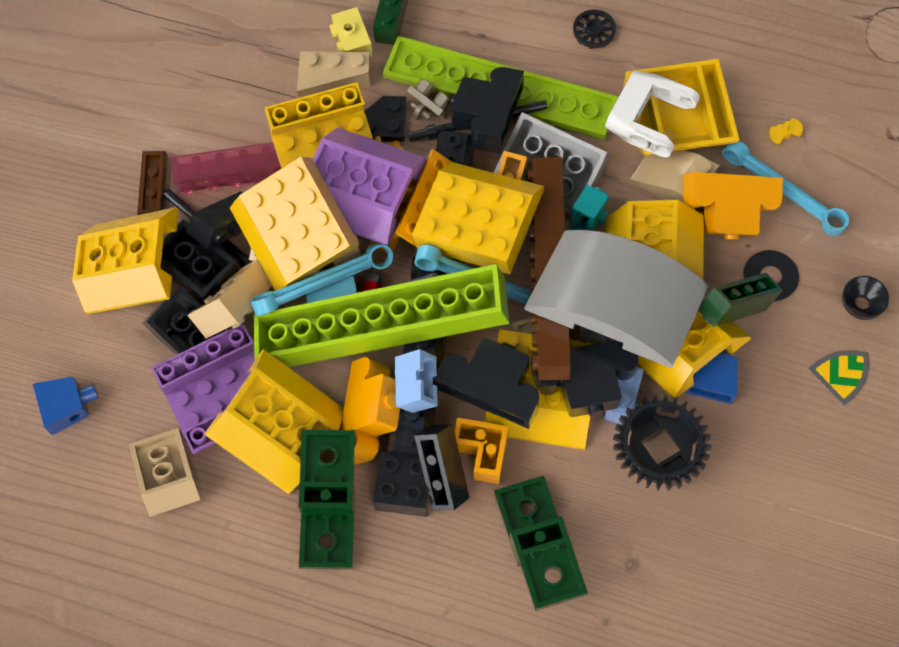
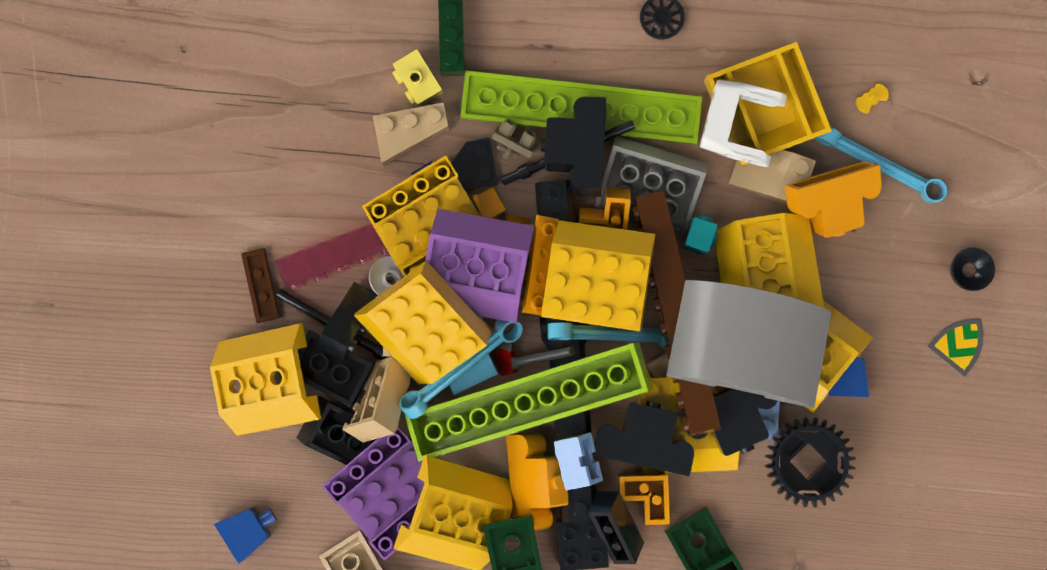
camera: 20 degrees left, 20 degrees up
(739, 299) = (859, 307): dark green brick -> none
(776, 259) = (897, 254): black gear -> none

